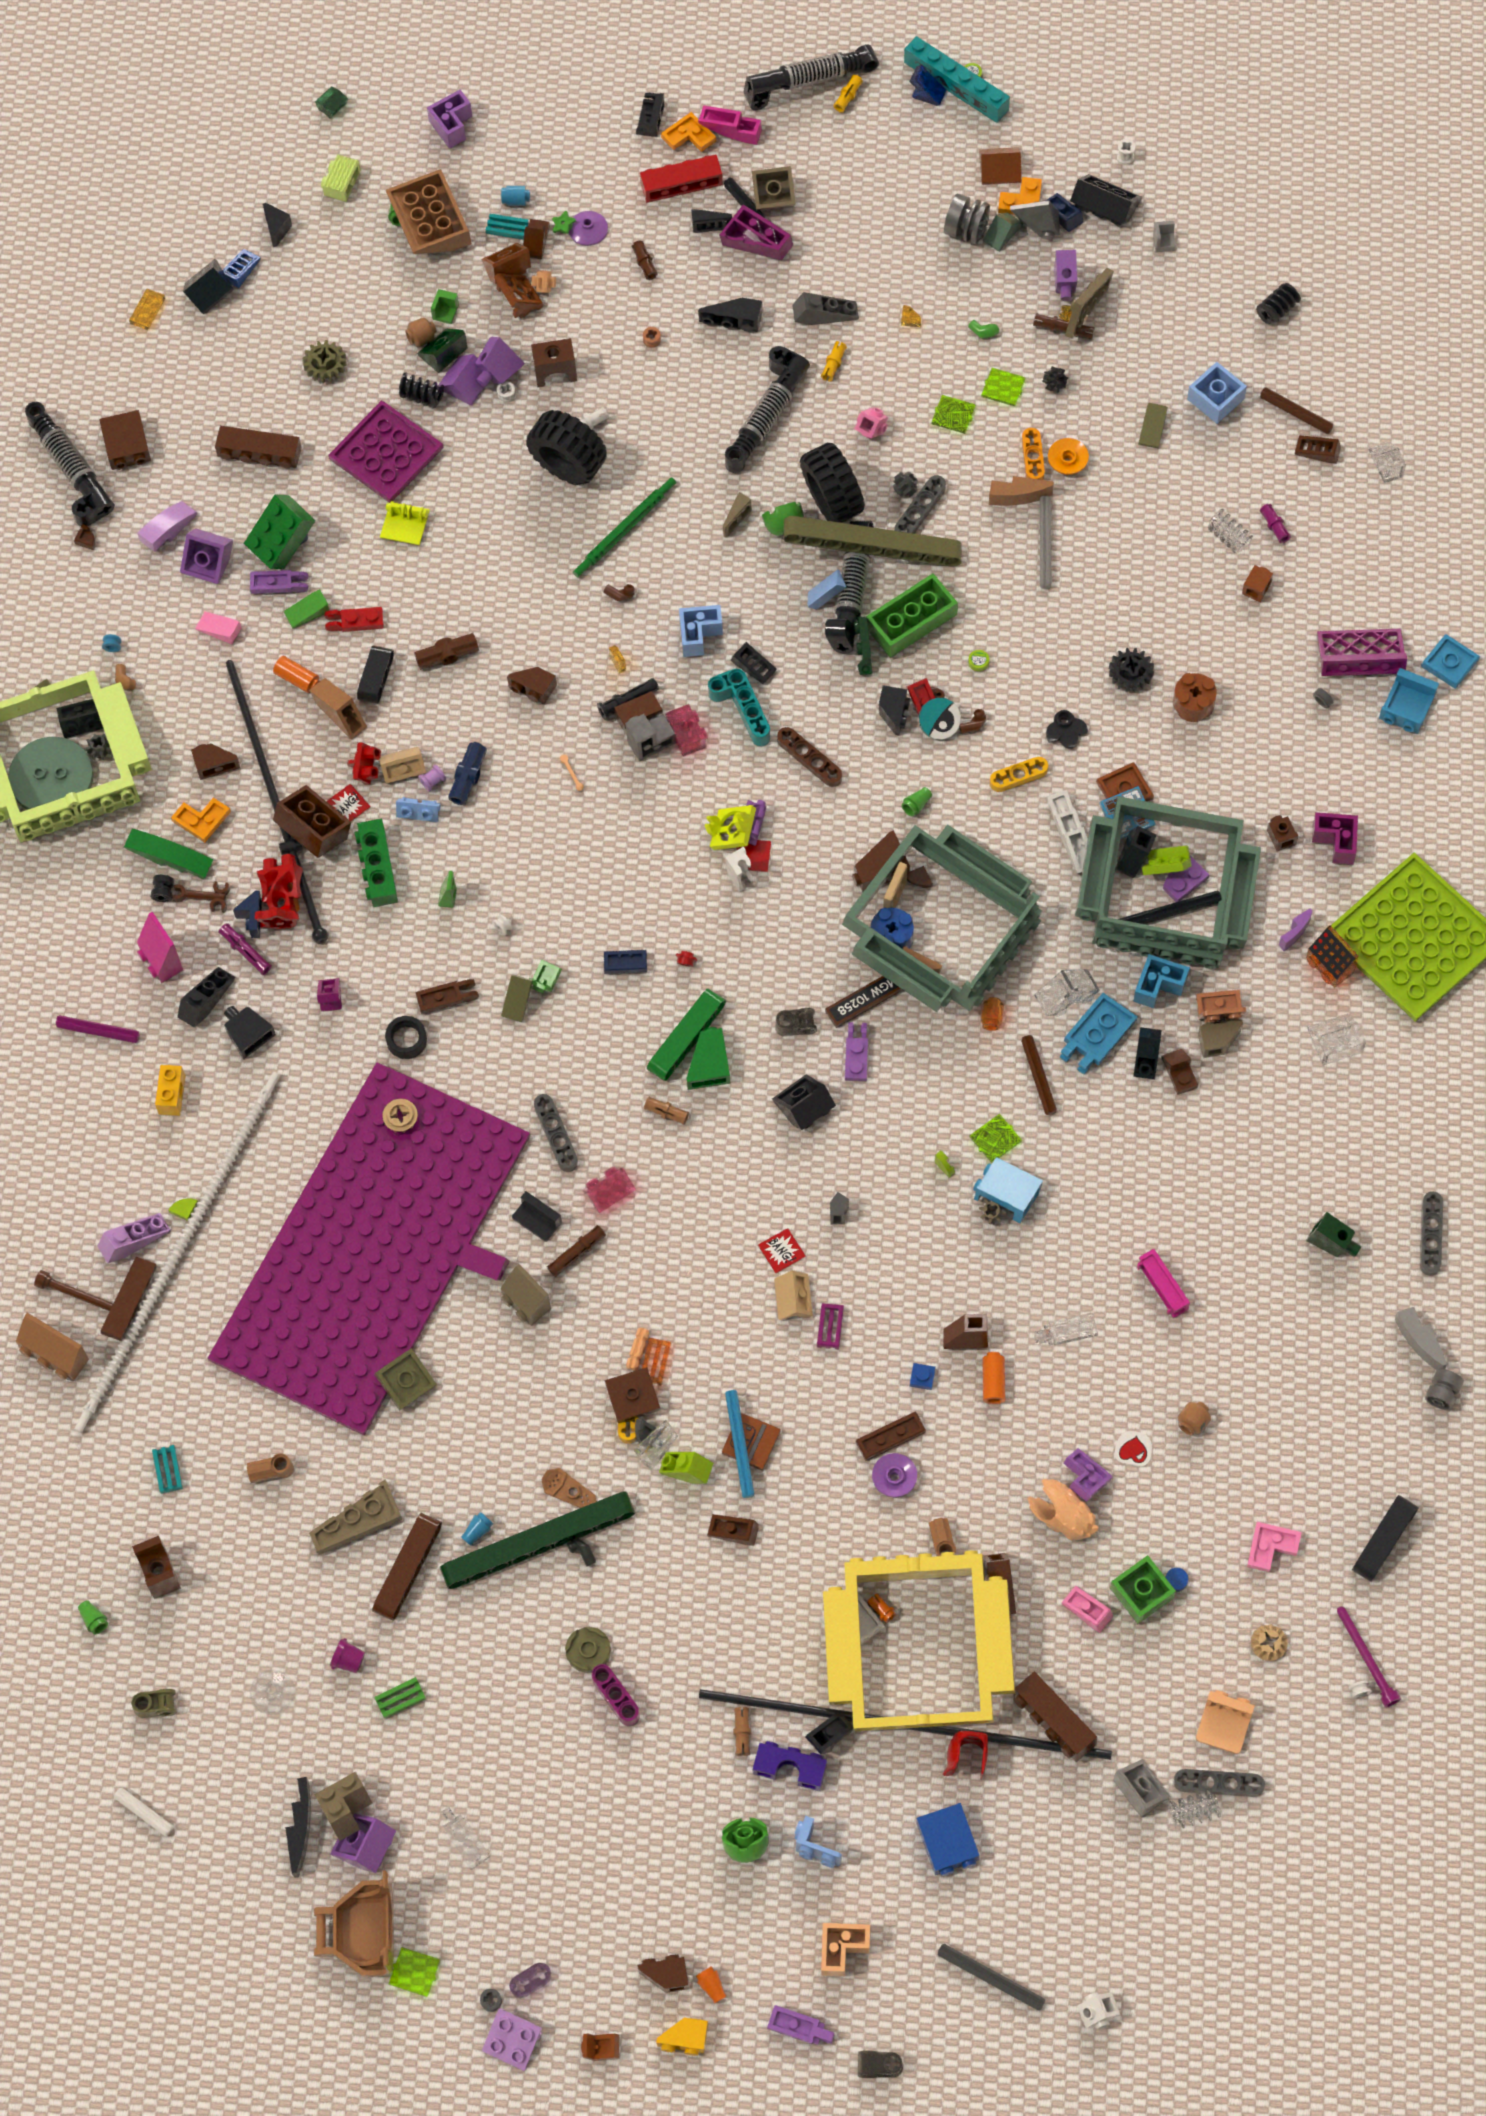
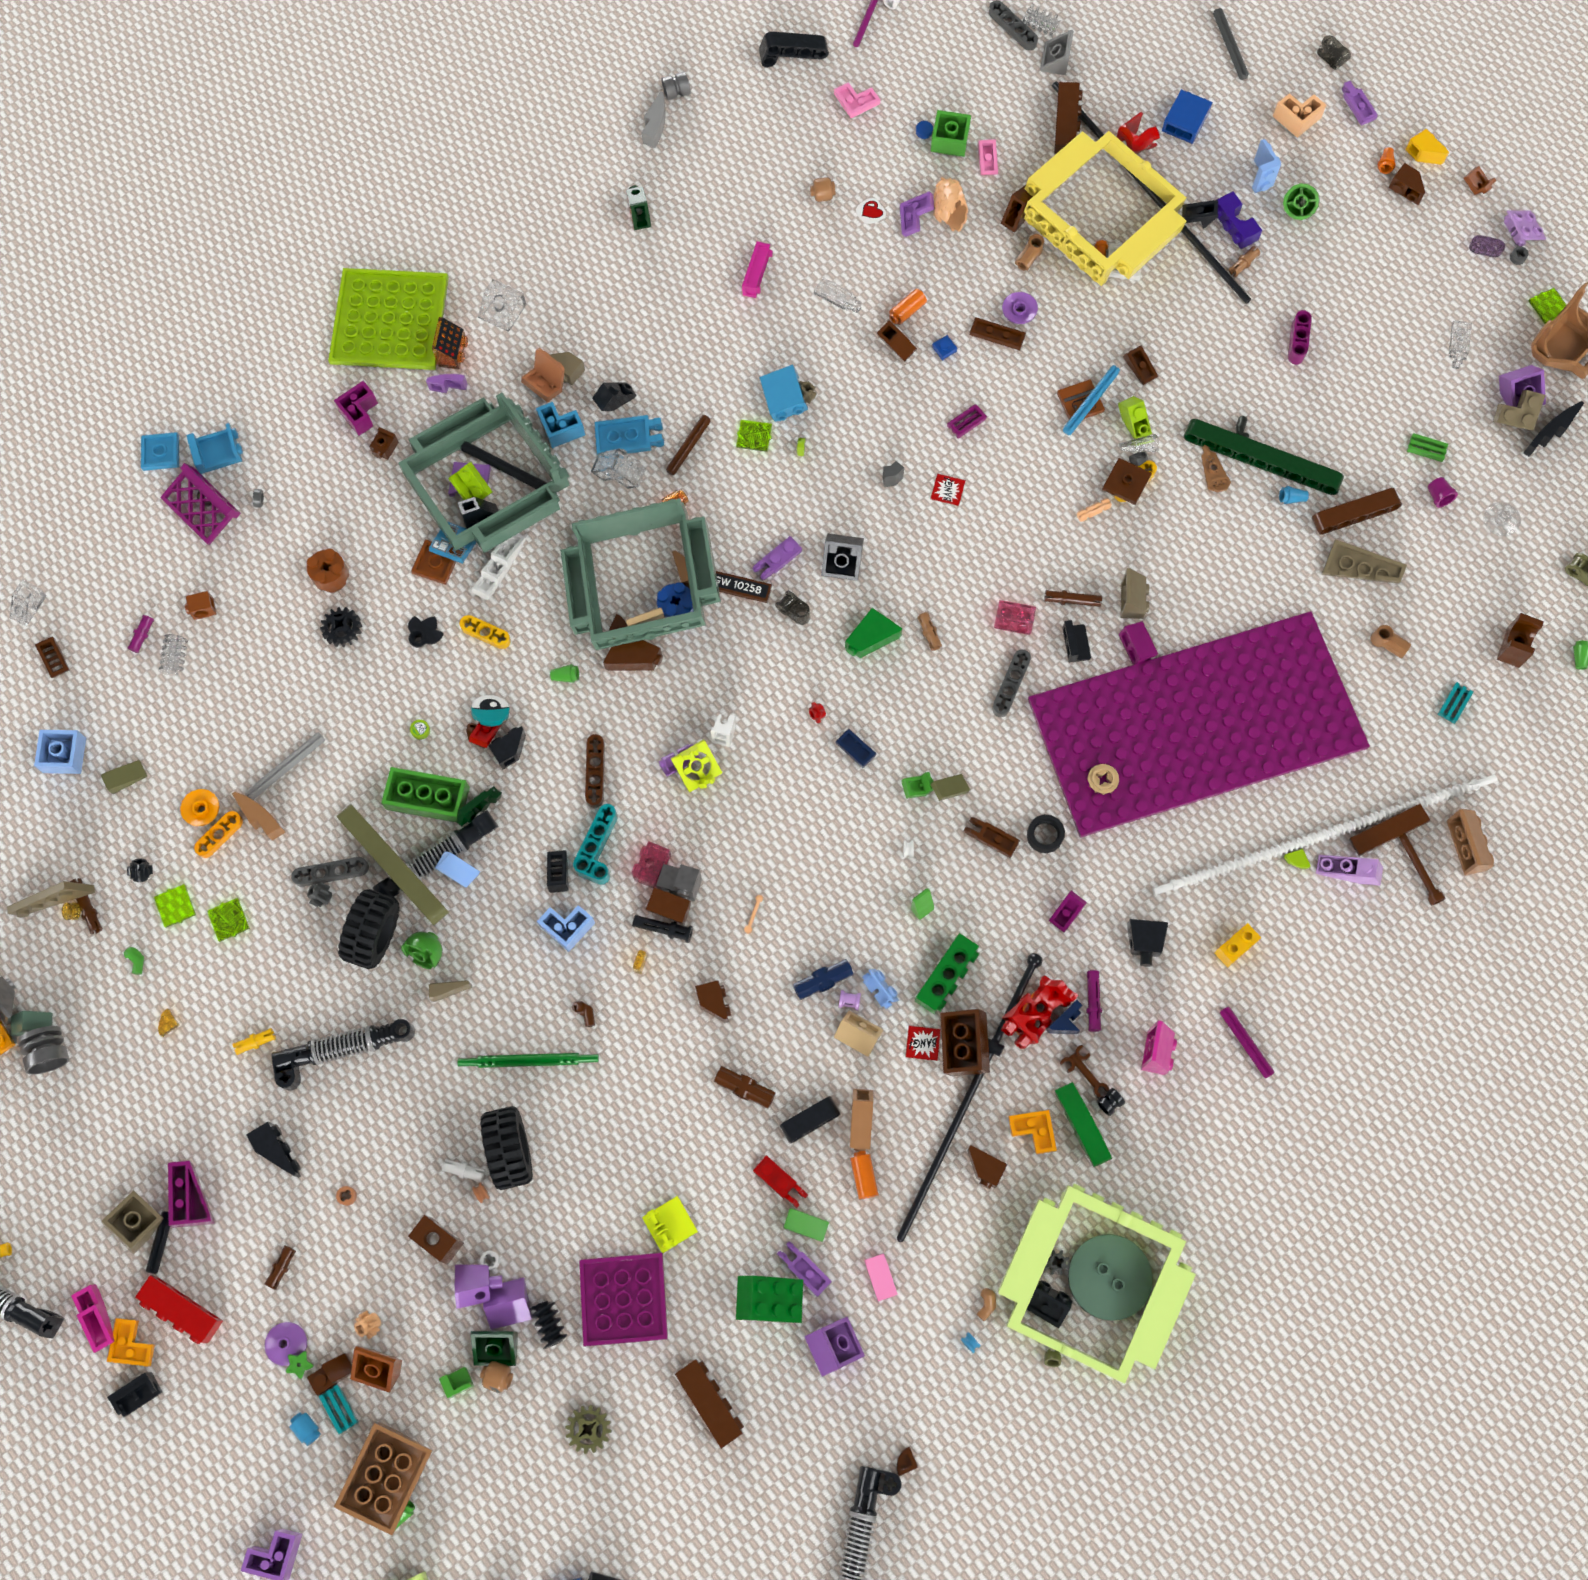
camera: 135 degrees left, 5 degrees up
(125, 440) = (800, 1518): reddish brown panel -> none
(166, 525) = (837, 1404): lavender slope -> none
(204, 996) = (1152, 991): black slope -> none
(363, 763) = (886, 1057): red hips -> none
(405, 1379) = (1256, 616): olive tile -> none
(508, 285) = (383, 1341): dark orange piece -> none
(587, 1649) = (1289, 378): olive tile -> none
(660, 1343) = (1078, 502): clear orange tile -> none
(686, 1034) = (868, 664): green beam -> none
(709, 220) = (204, 1251): black slope -> none
(758, 855) = (697, 736): red sticker -> none
(793, 1295) = (971, 454): tan panel -> none
(821, 309) = (213, 1087): dark grey slope -> none
(871, 423) = (287, 961): bright pink brick -> none
(975, 724) = (470, 690): reddish brown arm -> none
(1065, 273) = (37, 938): medium lavender torso -> none
(1179, 1071) = (607, 370): reddish brown slope -> none
(1224, 1722) = (978, 45): light nougat bracket -> none
(1265, 1652) = (915, 66): tan gear -> none
(1296, 410) = (30, 696): reddish brown axle -> none
(1431, 1233) = (584, 169): dark grey beam -> none

